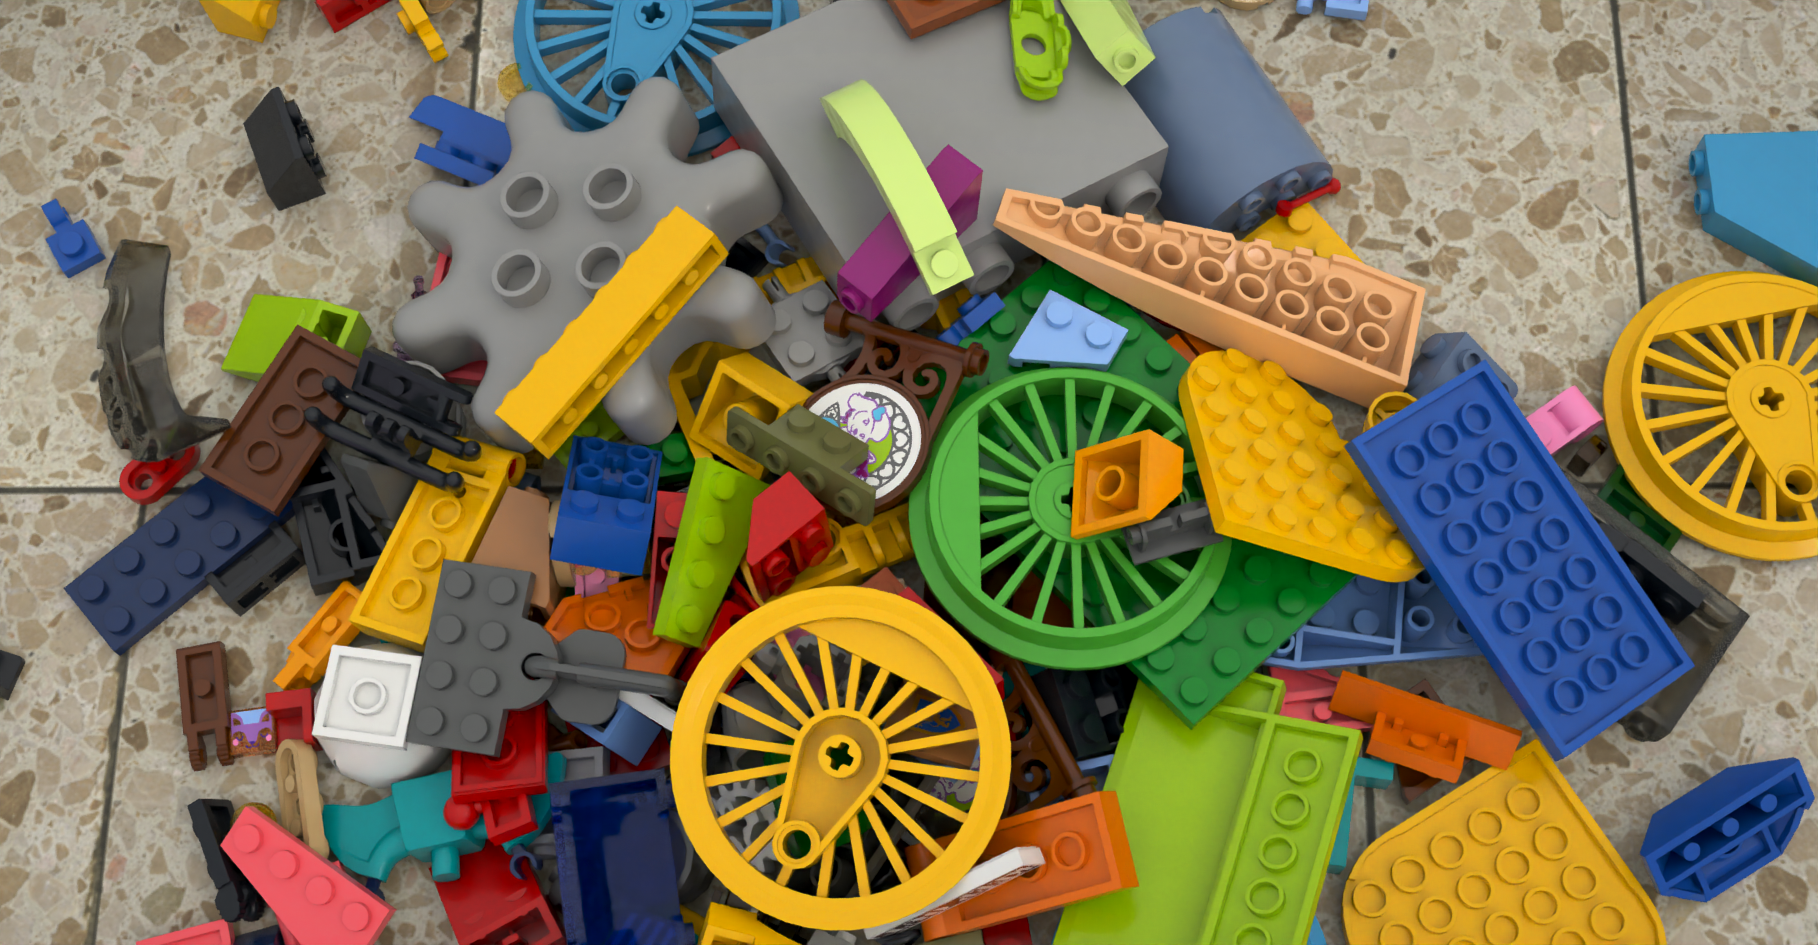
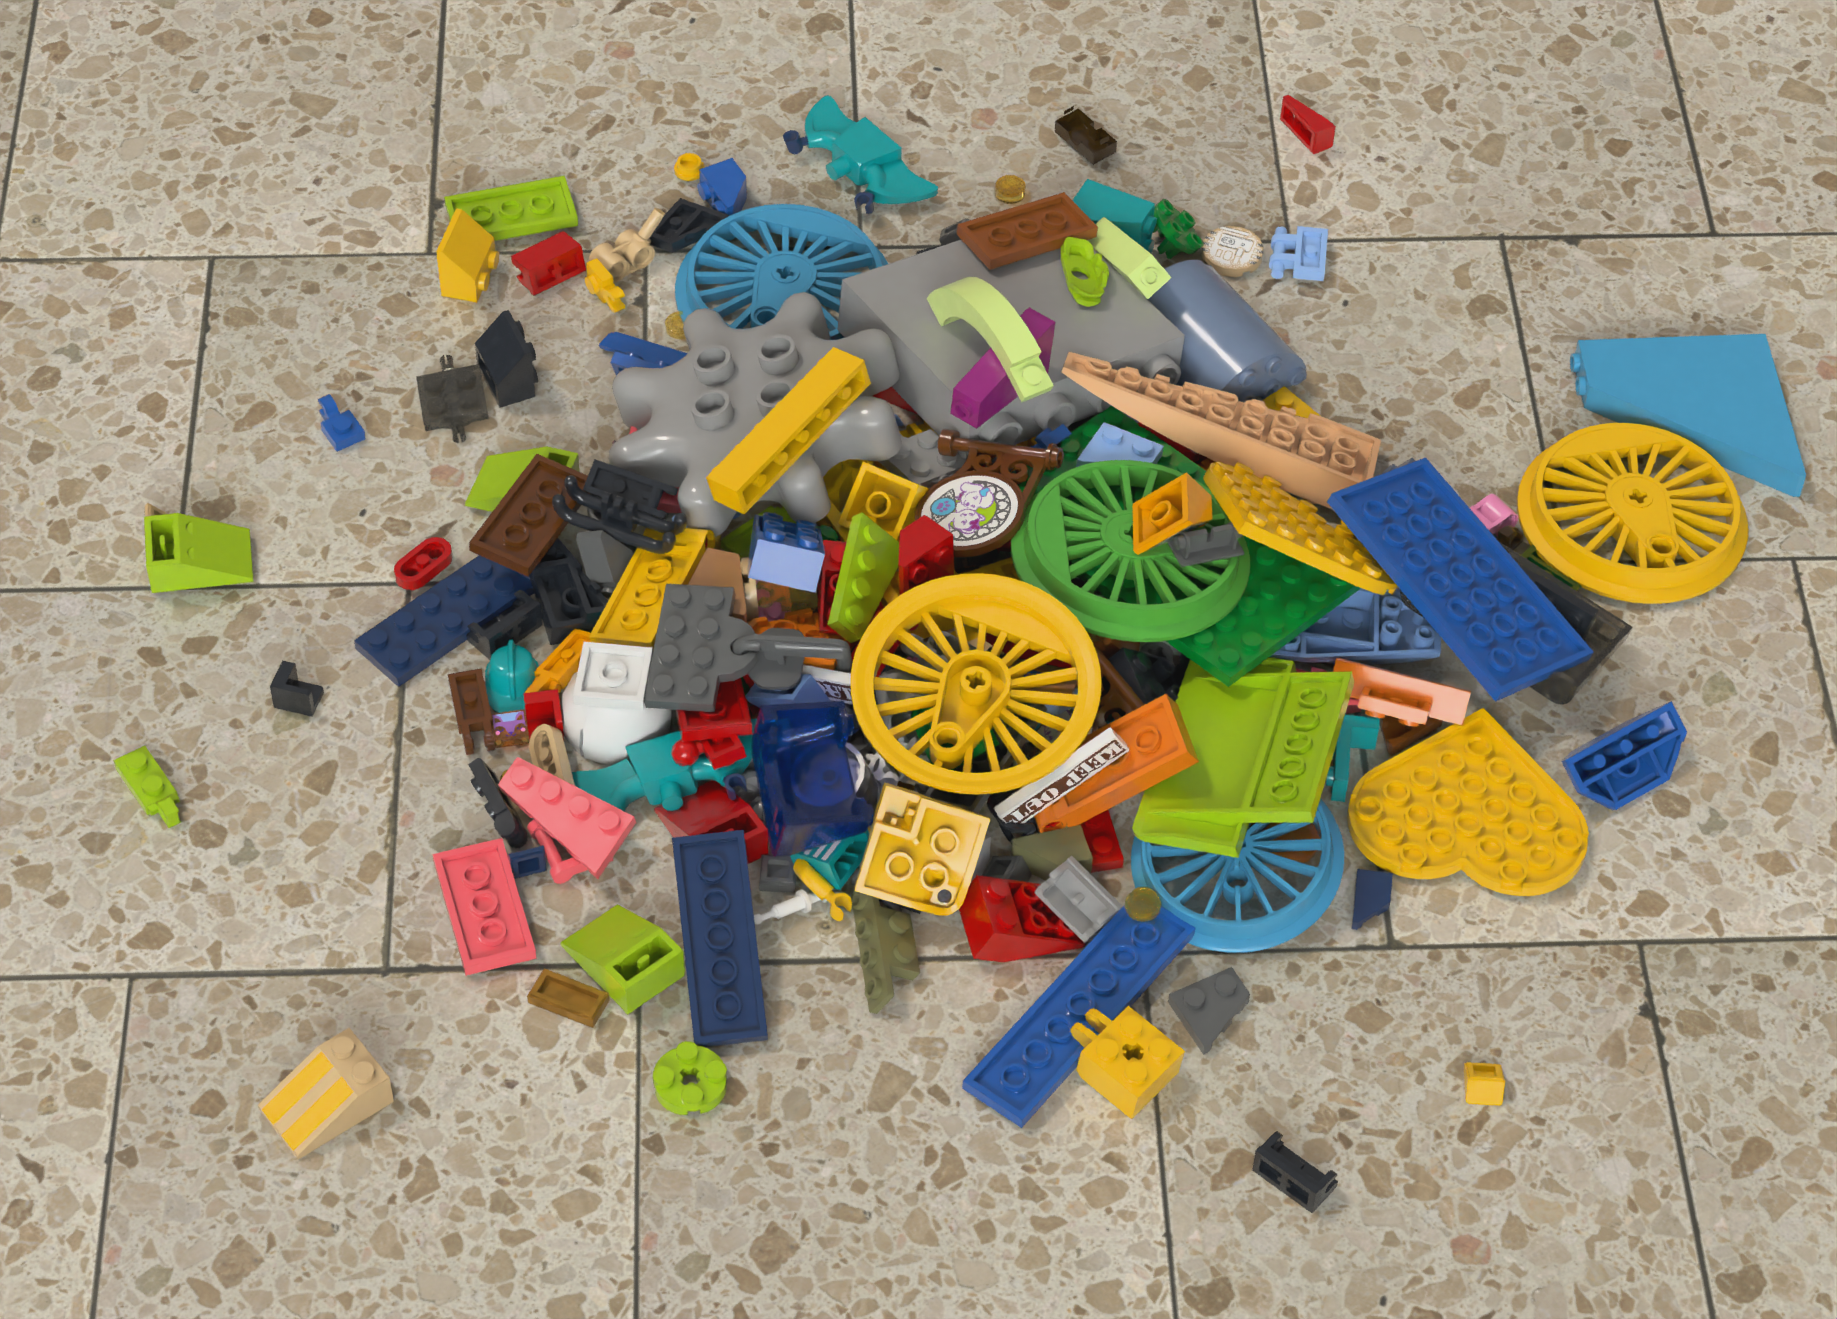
camera: 10 degrees left, 20 degrees down
(135, 372) = (394, 495): clear smoke windscreen -> none
(217, 199) = (452, 398): none -> clear smoke plate
(259, 650) = (509, 677): none -> teal piece
(813, 452) = (949, 511): olive bracket -> none
(1285, 208) = (1272, 388): red hinge -> none

